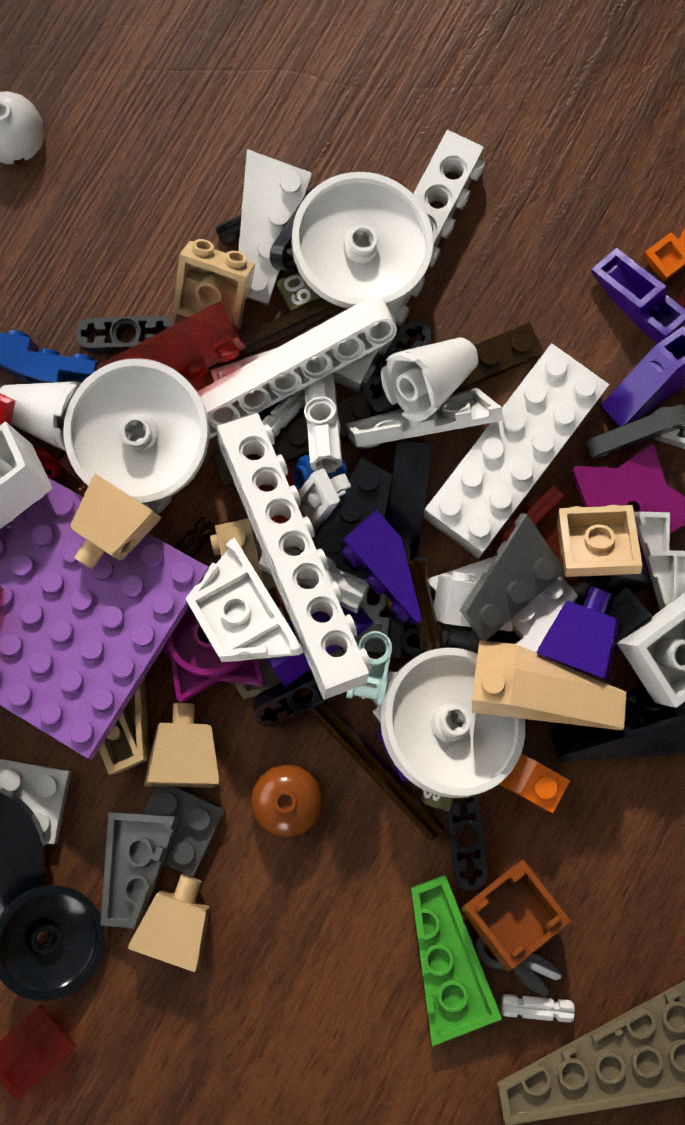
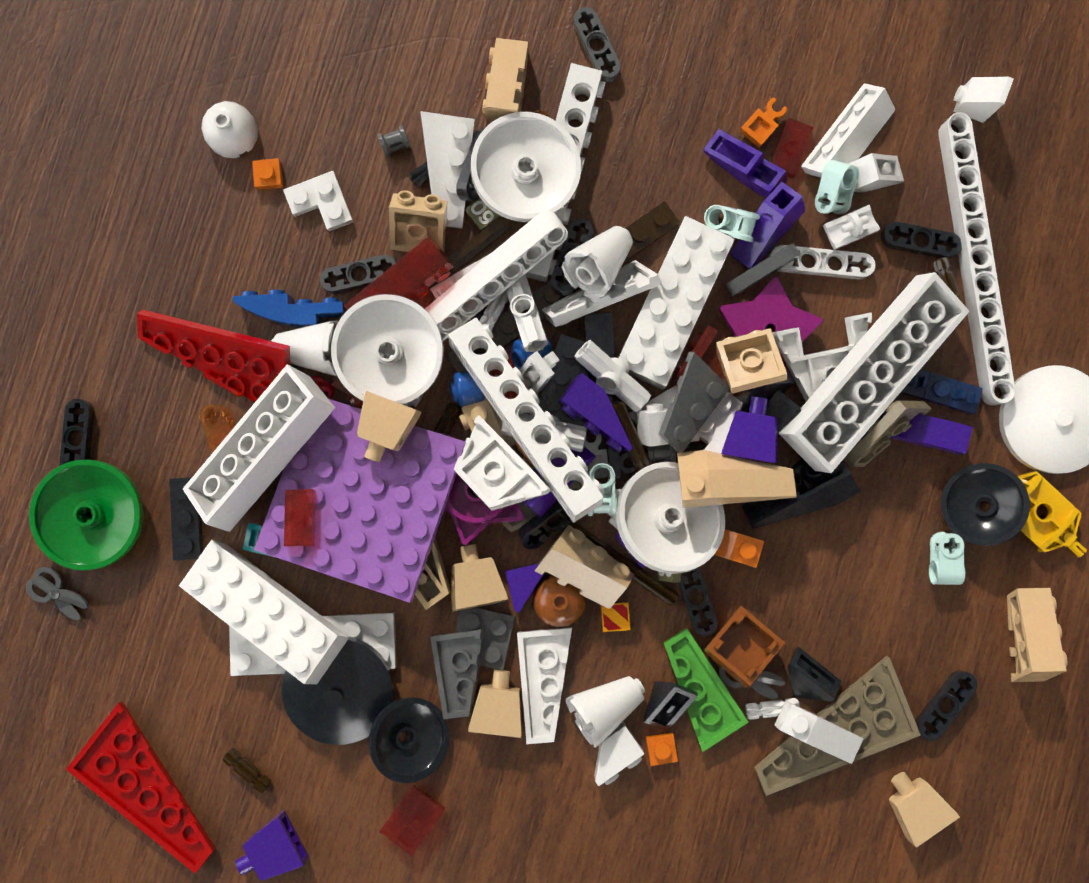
camera: 15 degrees left, 5 degrees up
(43, 190) = (267, 174): none -> orange plate
(100, 226) = (320, 193): none -> white plate
(207, 182) = (394, 141): none -> dark grey bush
(225, 503) = (464, 389): none -> blue head
(243, 767) = (521, 583): none -> dark purple slope
(243, 892) = (542, 672): none -> white wing
(315, 956) = (605, 707): none -> white cone
(318, 1020) = (616, 753): none -> white slope
(330, 764) = (587, 567): none -> tan wedge
(355, 839) = (616, 617): none -> tile
(363, 131) = (506, 78): none -> tan wedge
(378, 1030) = (661, 749): none -> orange plate
(399, 971) = (667, 704): none -> black slope
(416, 524) = (612, 375): none -> white piece
(489, 103) = (597, 33): none -> dark grey beam
(592, 1054) = (818, 732): none -> white slope
(596, 978) = (810, 678): none -> black slope
(614, 364) = (736, 222): none -> light aqua piece

